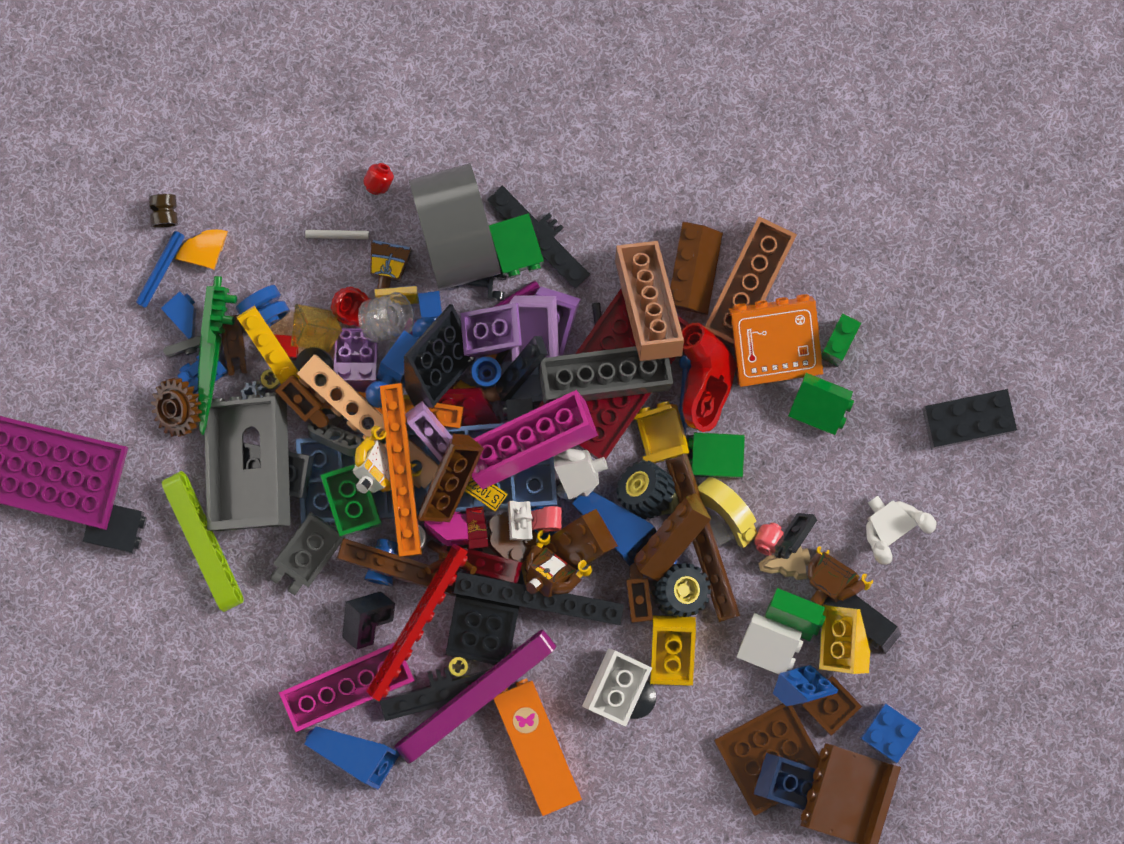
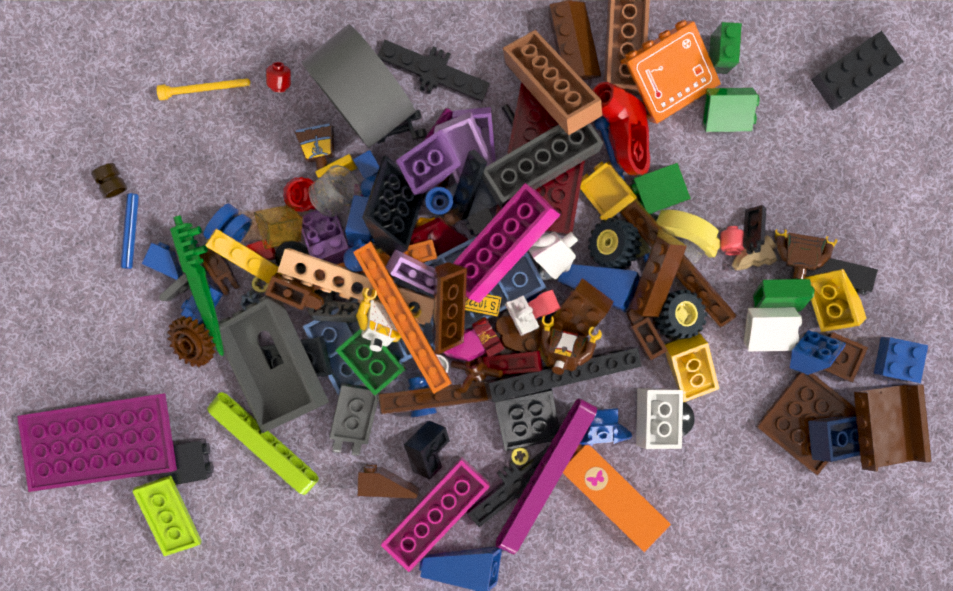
camera: 25 degrees left, 5 degrees up
(75, 573) = (167, 515): none -> lime plate
(203, 248) = (158, 198): light orange brick -> none
(259, 145) = (165, 92): none -> yellow piece
(304, 629) = (380, 482): none -> reddish brown slope
(336, 234) = (264, 139): white bar -> none
(421, 615) = (471, 445): red plate -> none
(516, 246) = (420, 83): green brick -> none
(556, 672) = (605, 429): none -> blue piece
(891, 523) = (828, 185): white torso -> none

